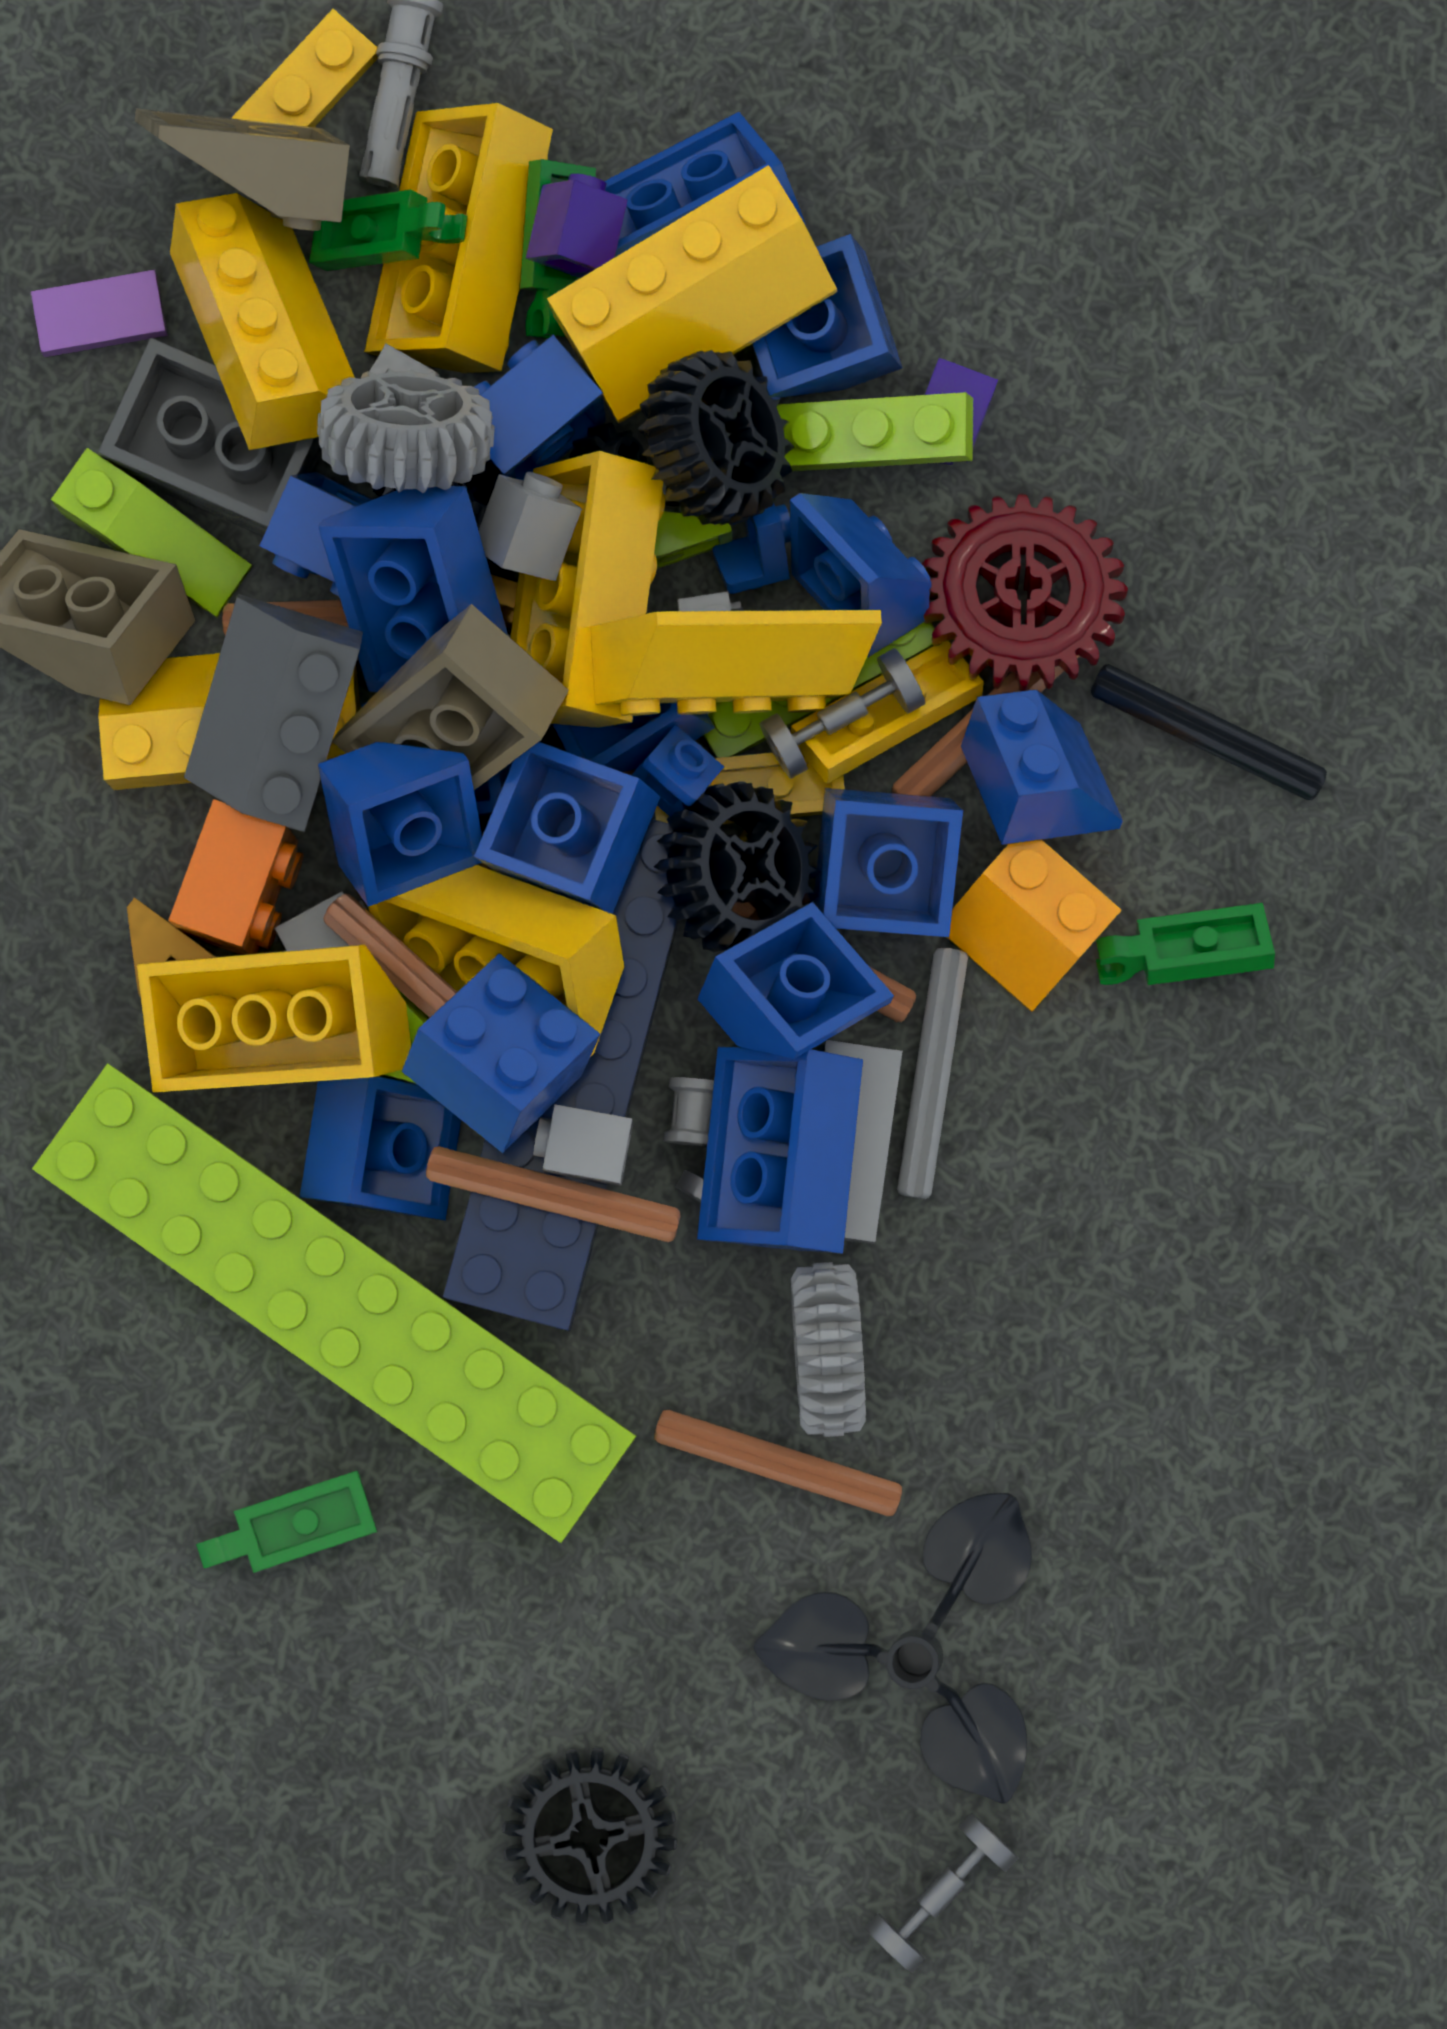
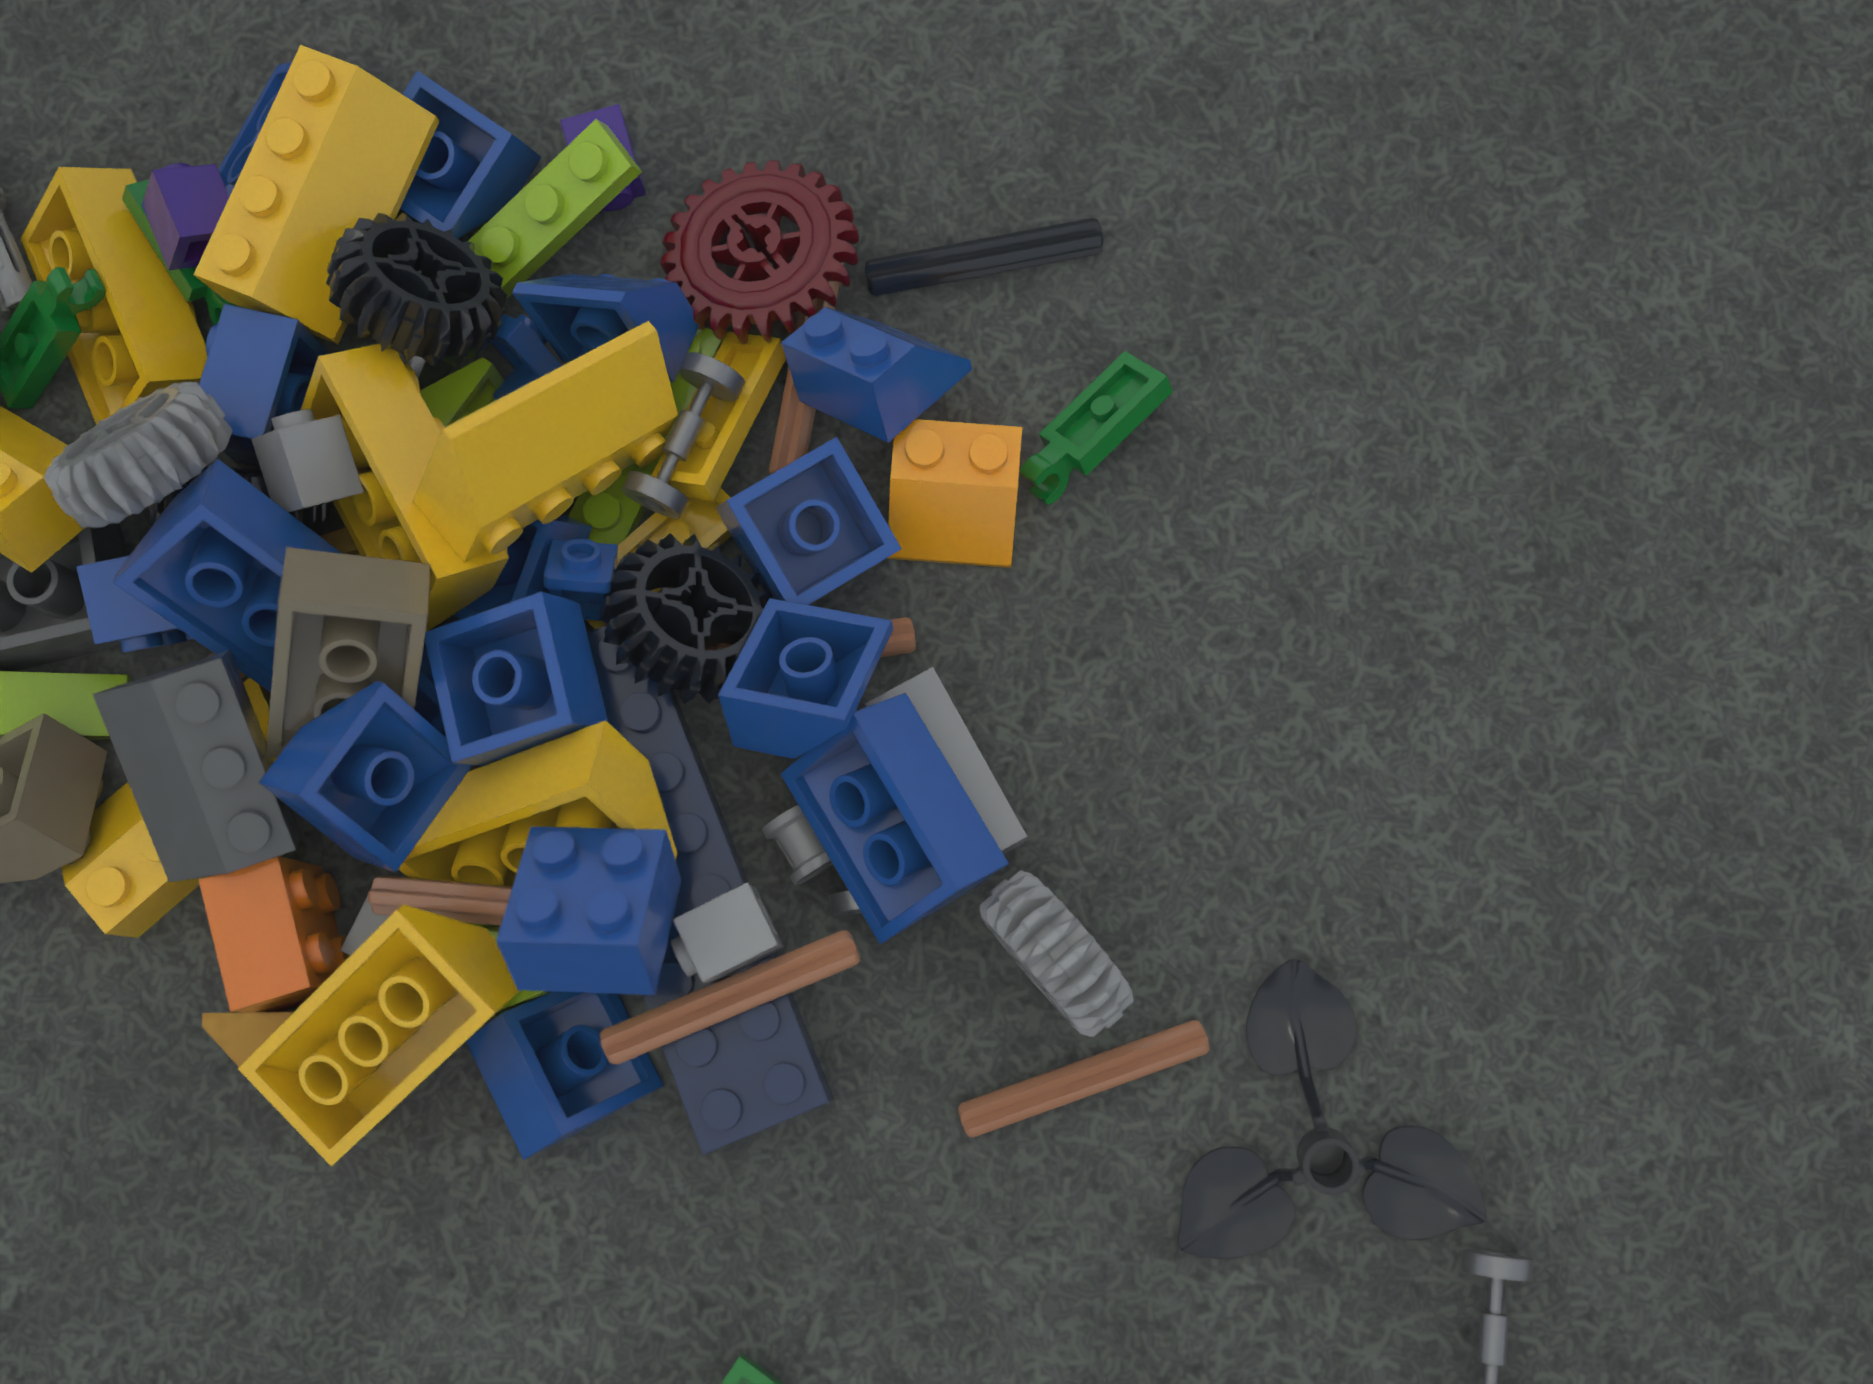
camera: 30 degrees left, 5 degrees down
(334, 1302) = (613, 1228): lime brick -> none
(932, 1073) = (970, 672): light grey axle -> none

